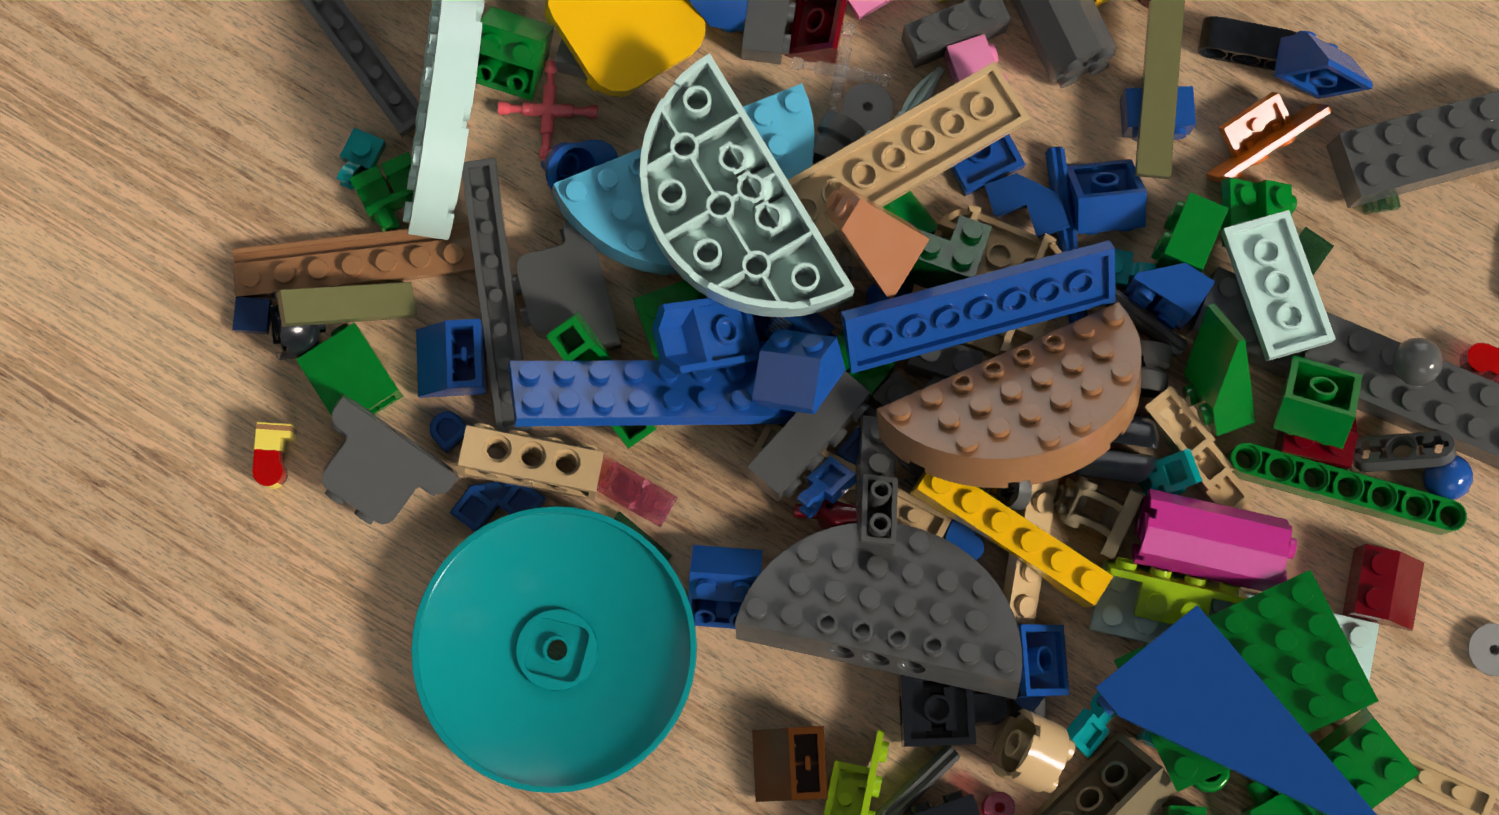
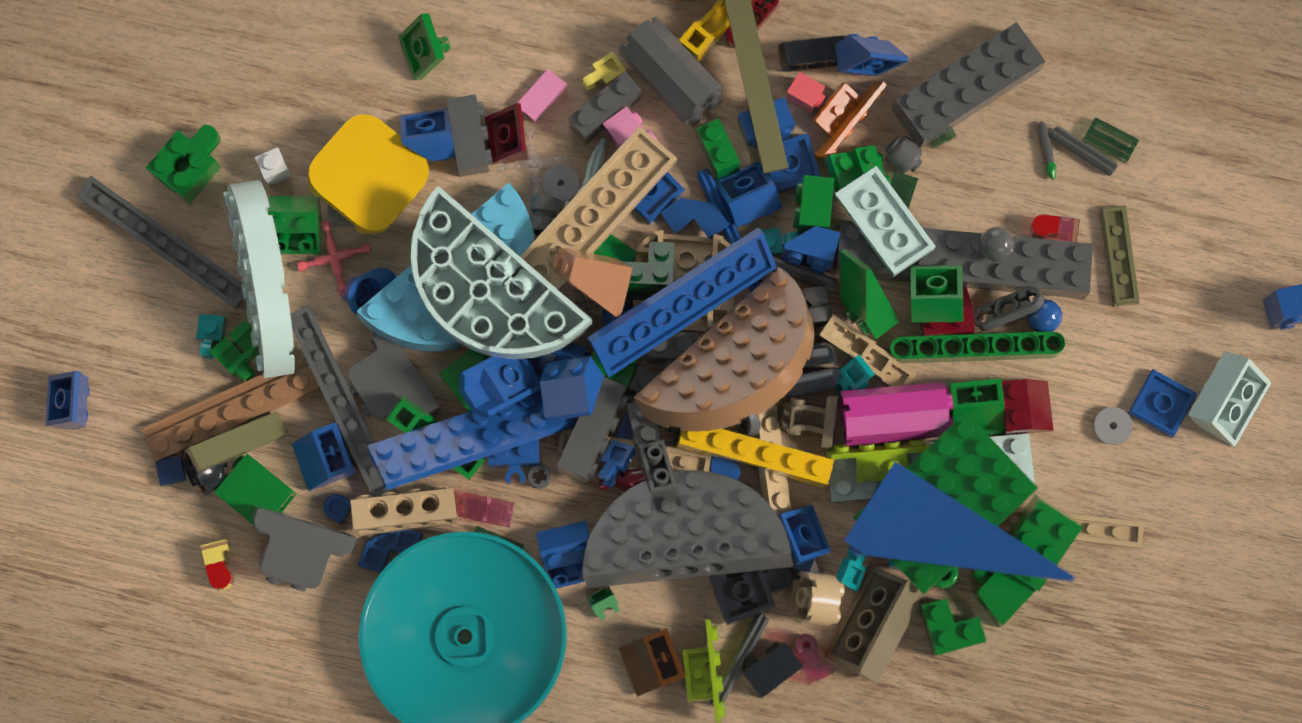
camera: 15 degrees left, 0 degrees up
(150, 183) = (67, 400): none -> blue slope
(696, 440) = (521, 456): none -> blue brick
(718, 463) = (535, 470): none -> dark grey bush
(750, 660) = (601, 600): none -> green tile
(1084, 125) = (717, 148): none -> green brick
(1187, 176) = (800, 162): none -> blue tile
(1221, 90) = (806, 93): none -> coral brick
(1325, 209) = (904, 154): none -> dark grey head
(1334, 561) = (982, 402): none -> green slope

